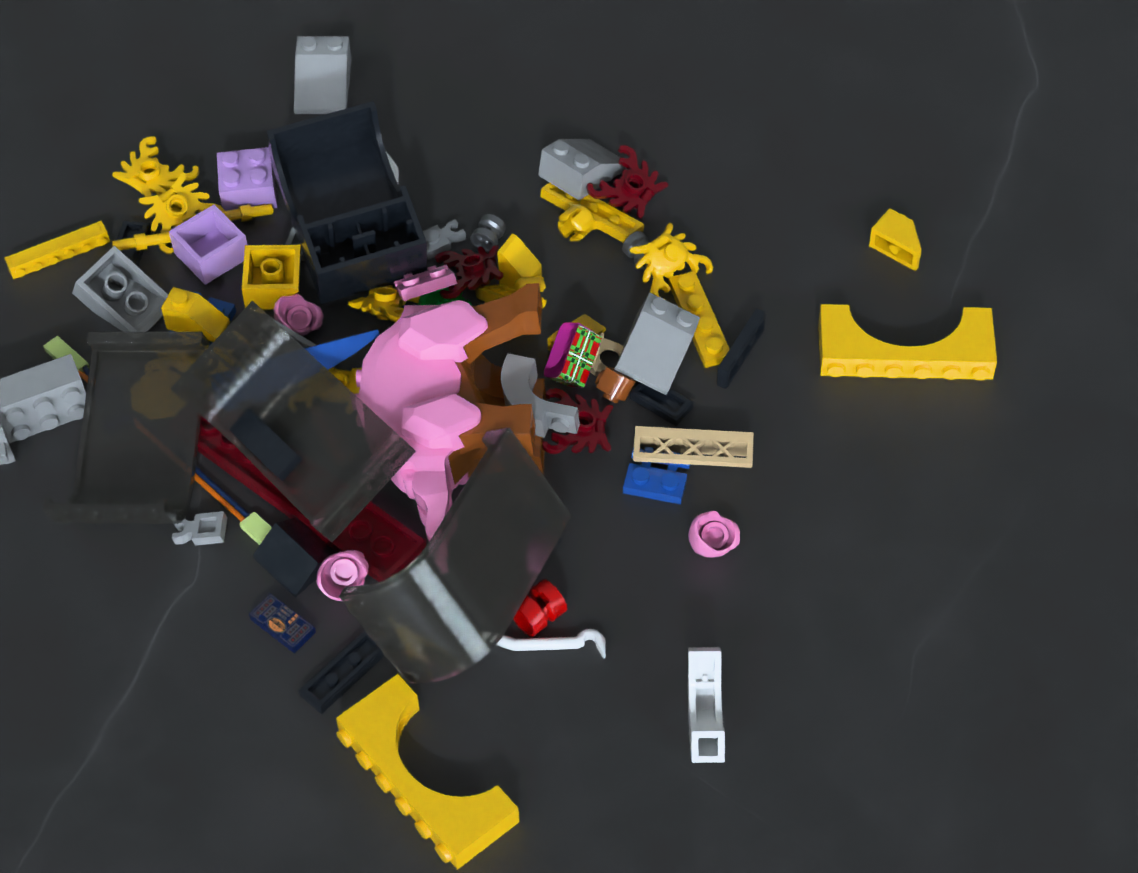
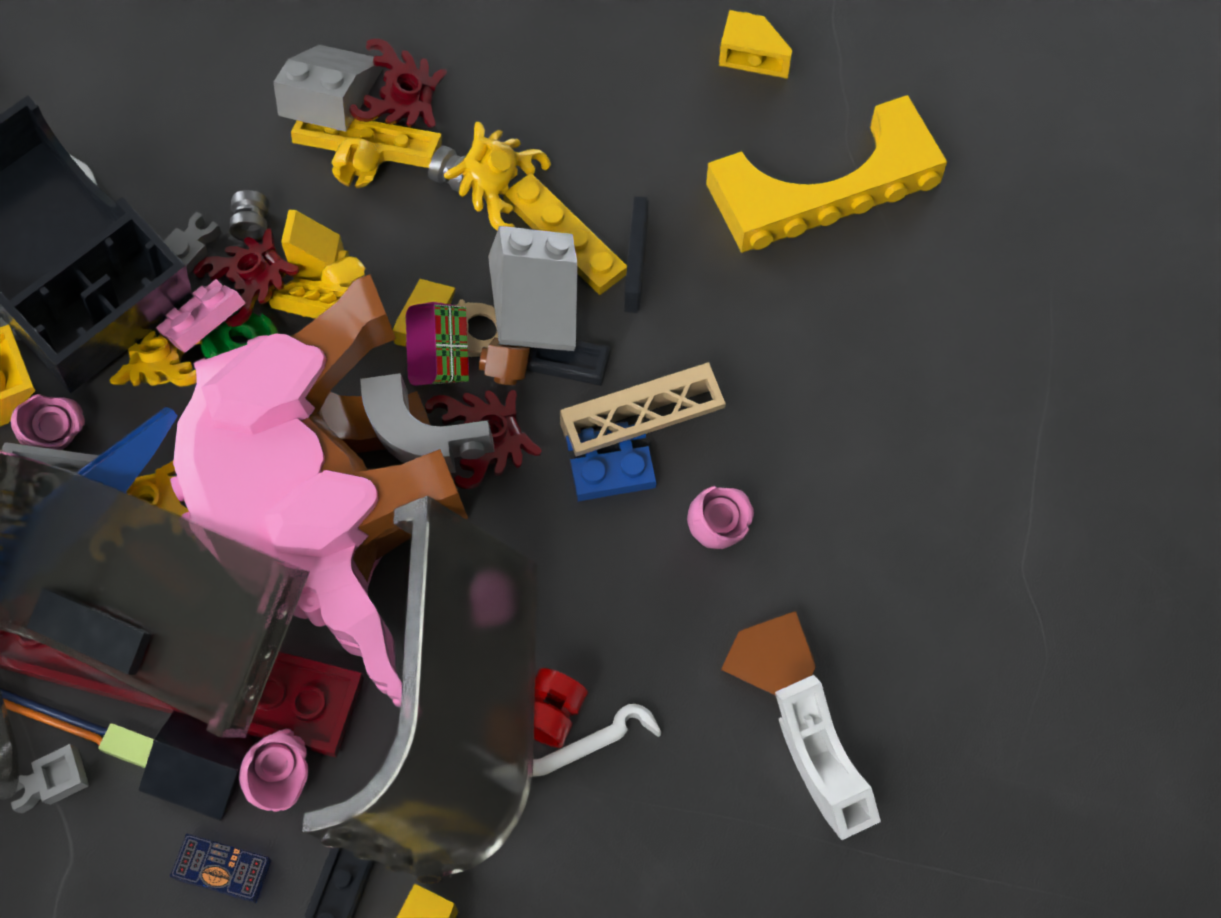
camera: 25 degrees left, 10 degrees up
(705, 630) = (771, 654): none -> dark orange slope

